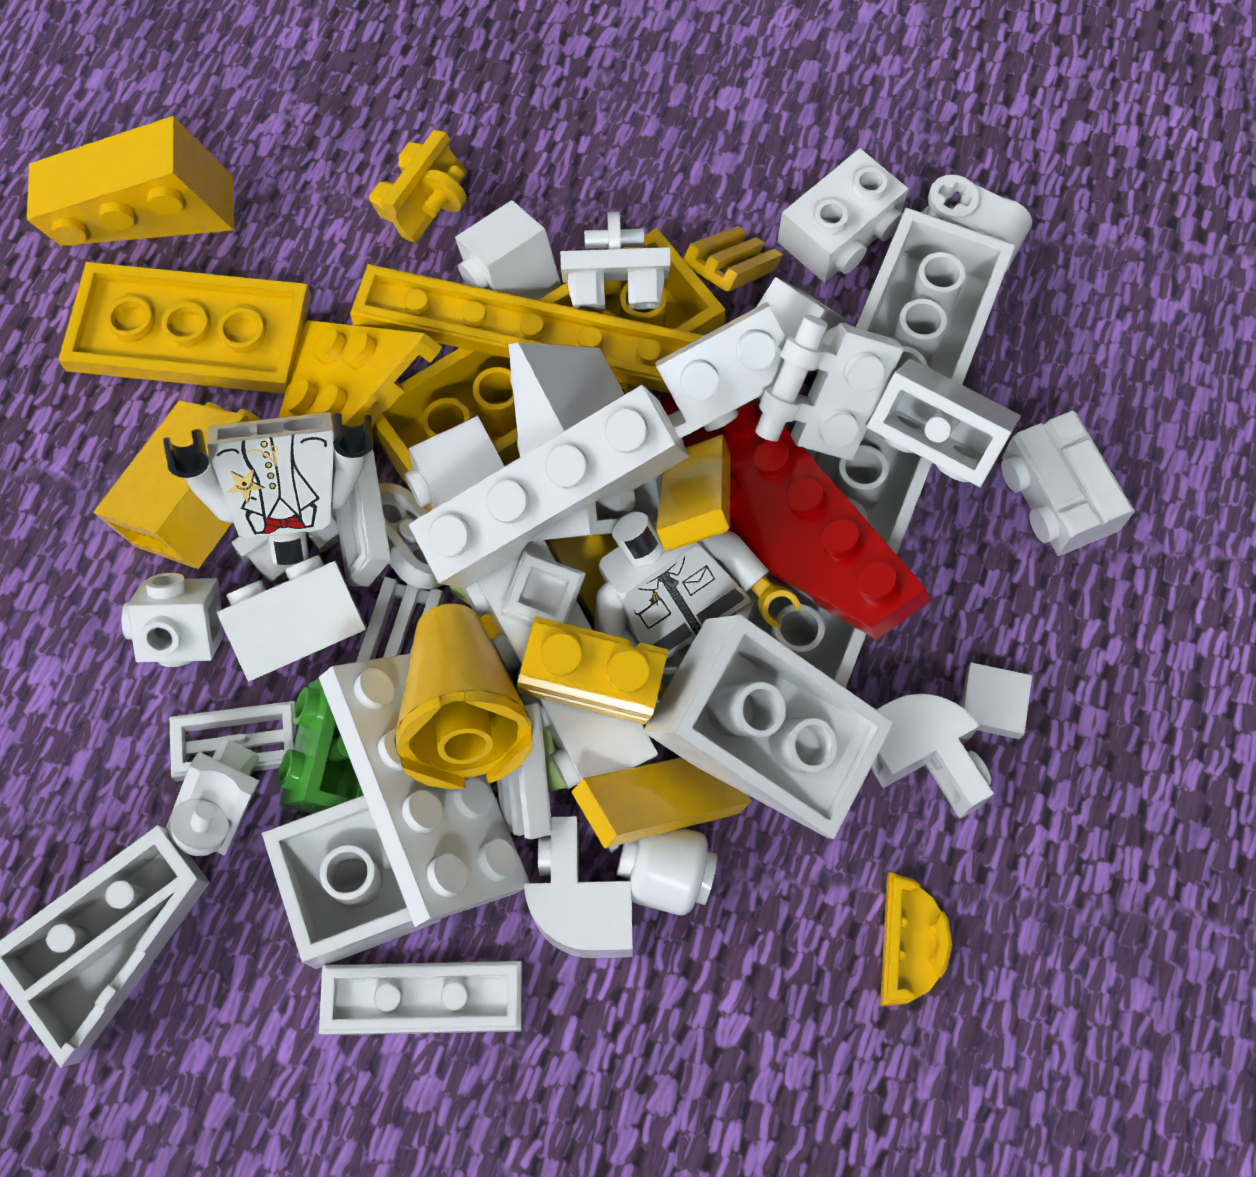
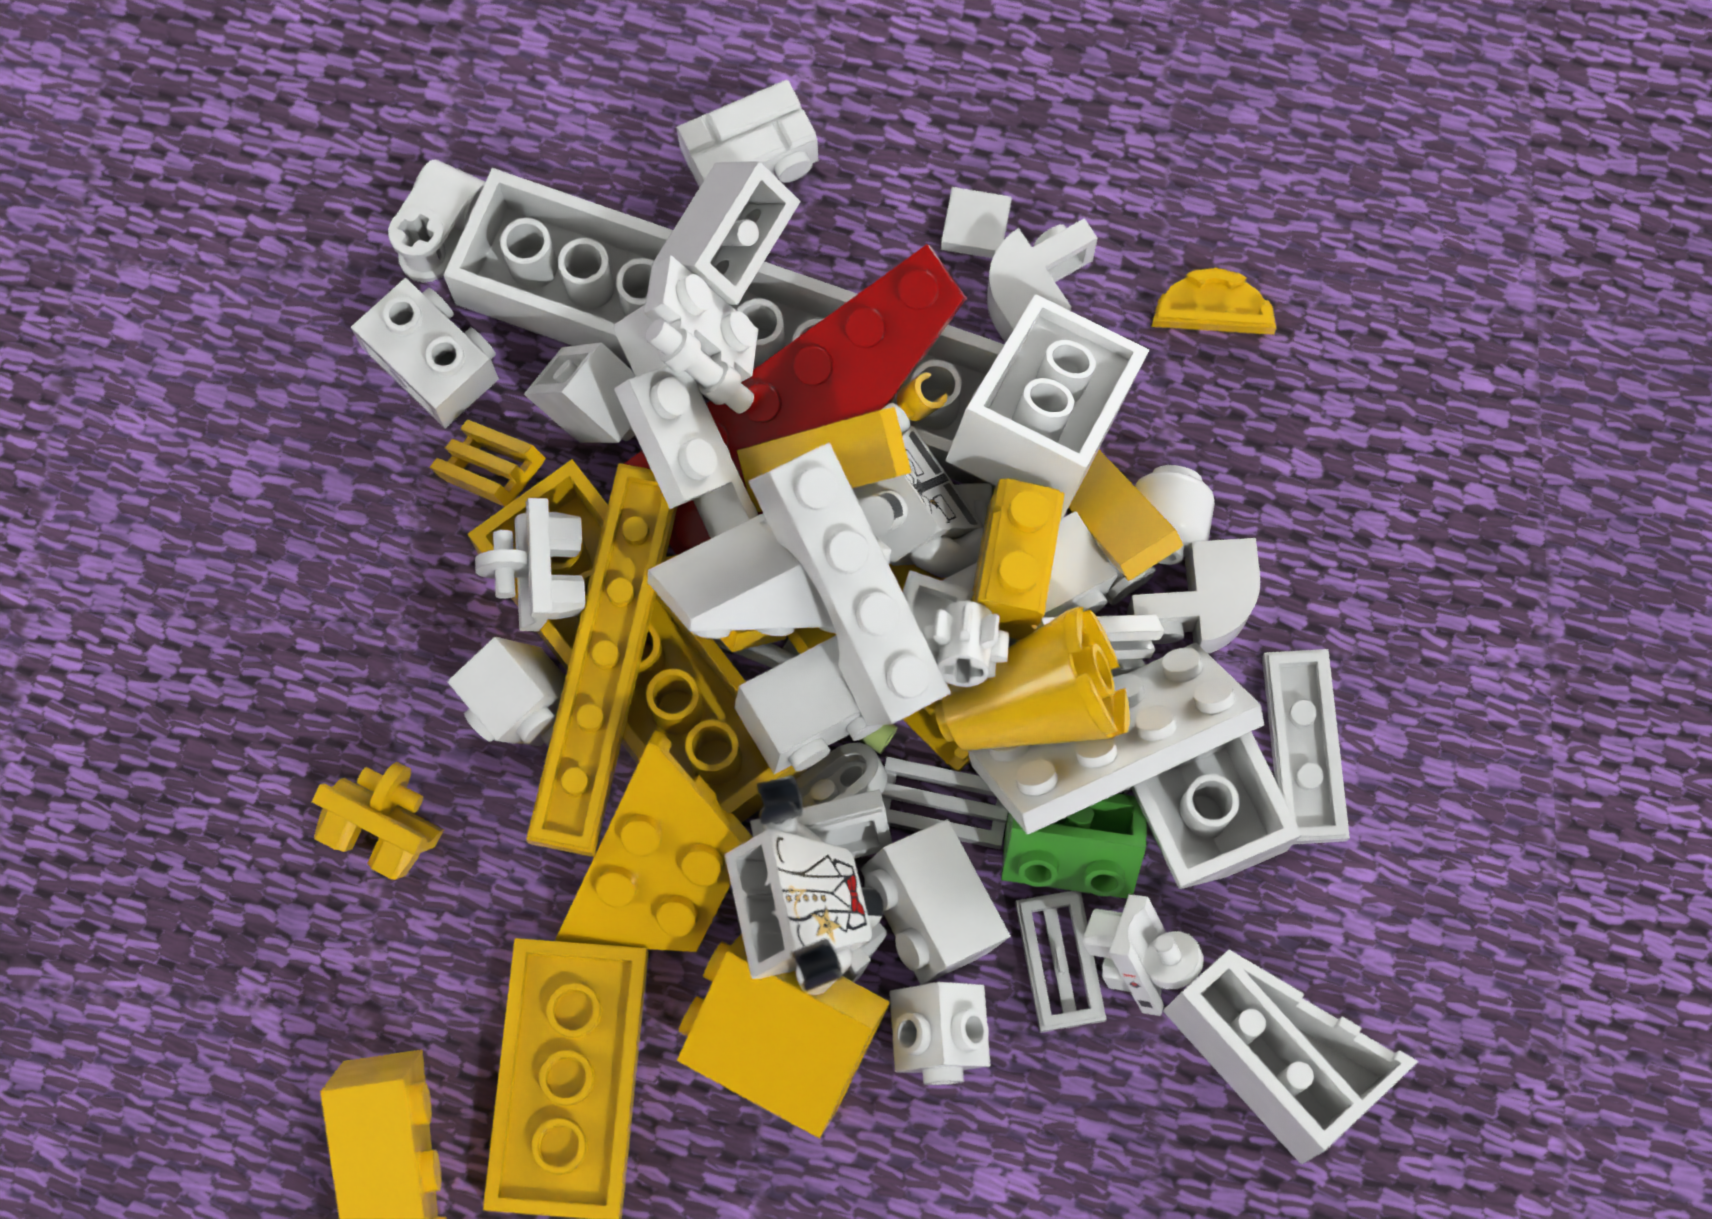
camera: 90 degrees left, 5 degrees up
(494, 606) = (966, 643): none -> white gear

